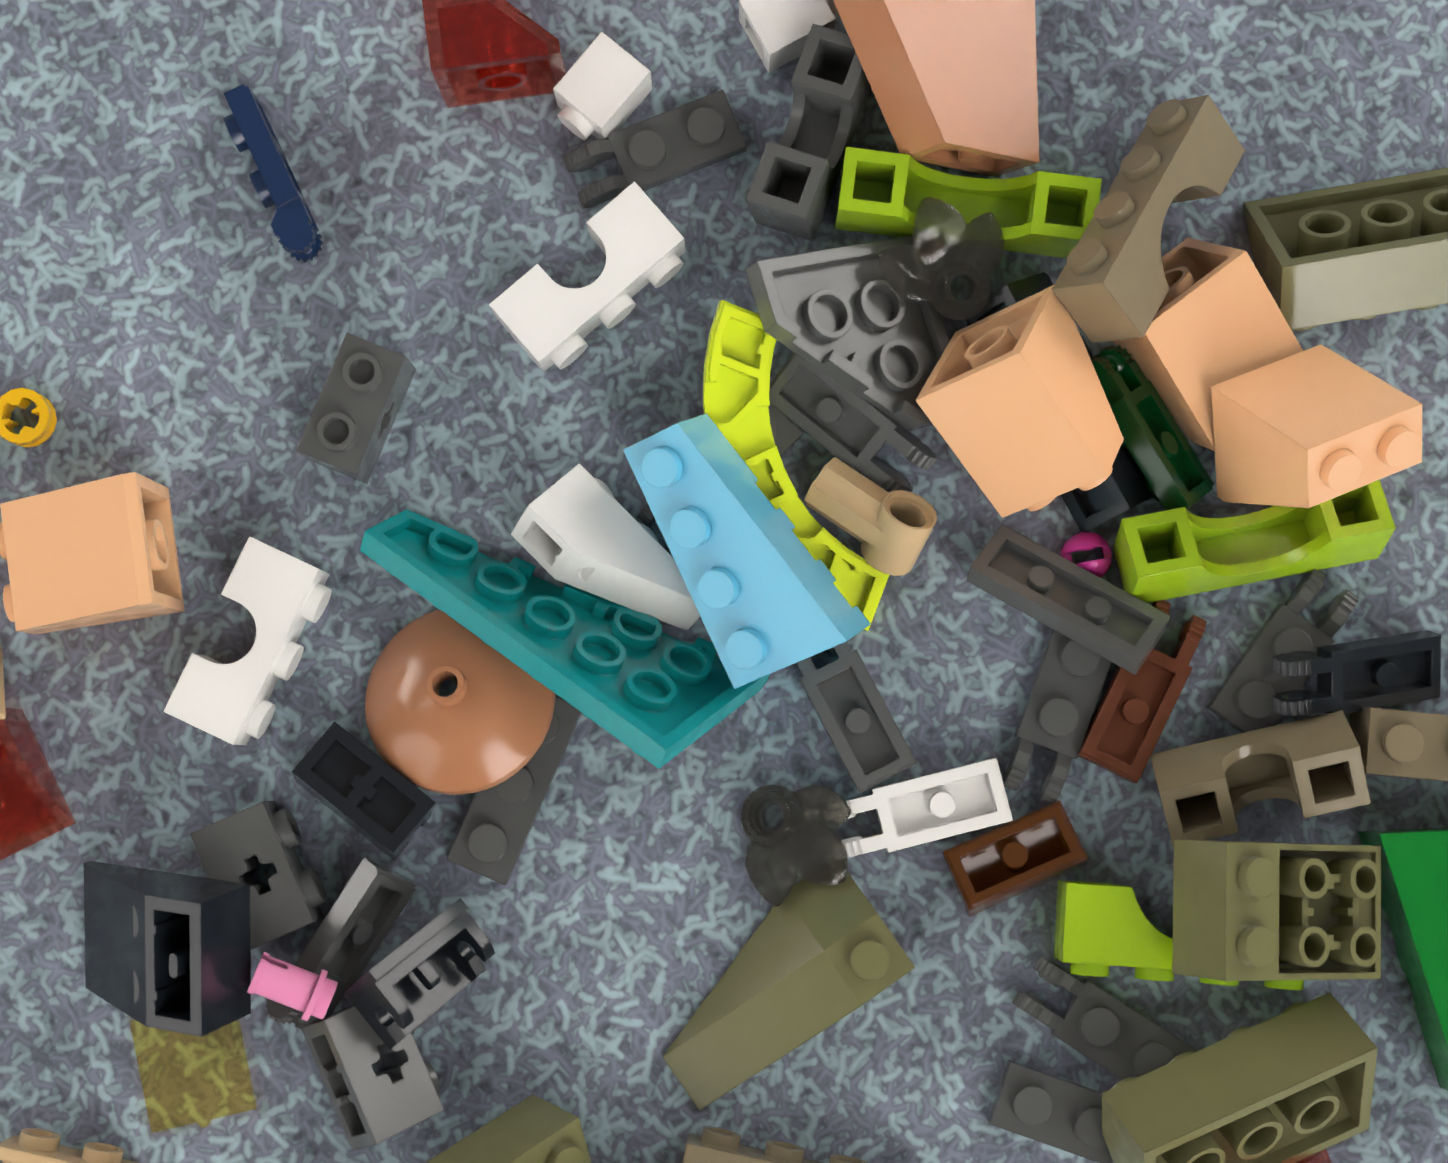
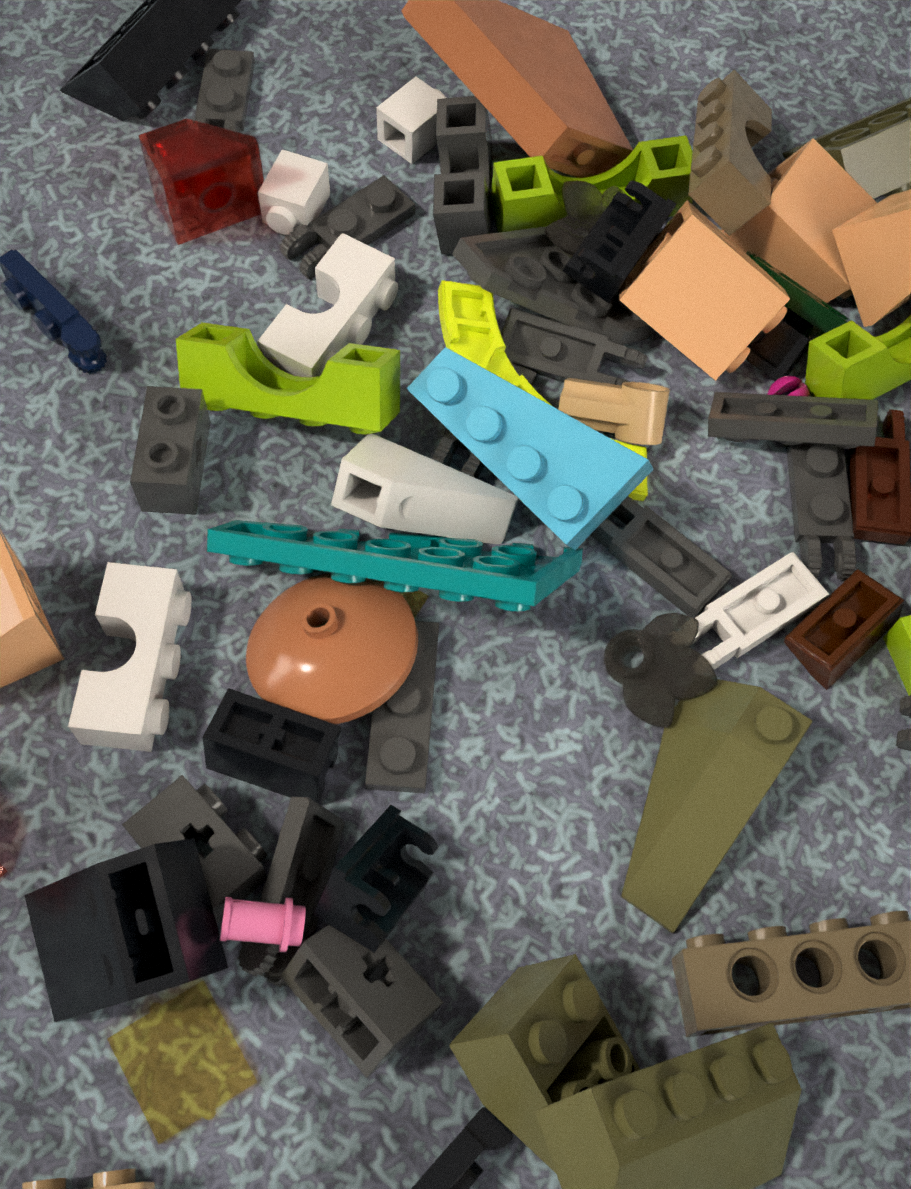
camera: 25 degrees left, 20 degrees down
(448, 331) = (353, 391): none -> lime arch
(953, 310) = (618, 240): none -> black hinge

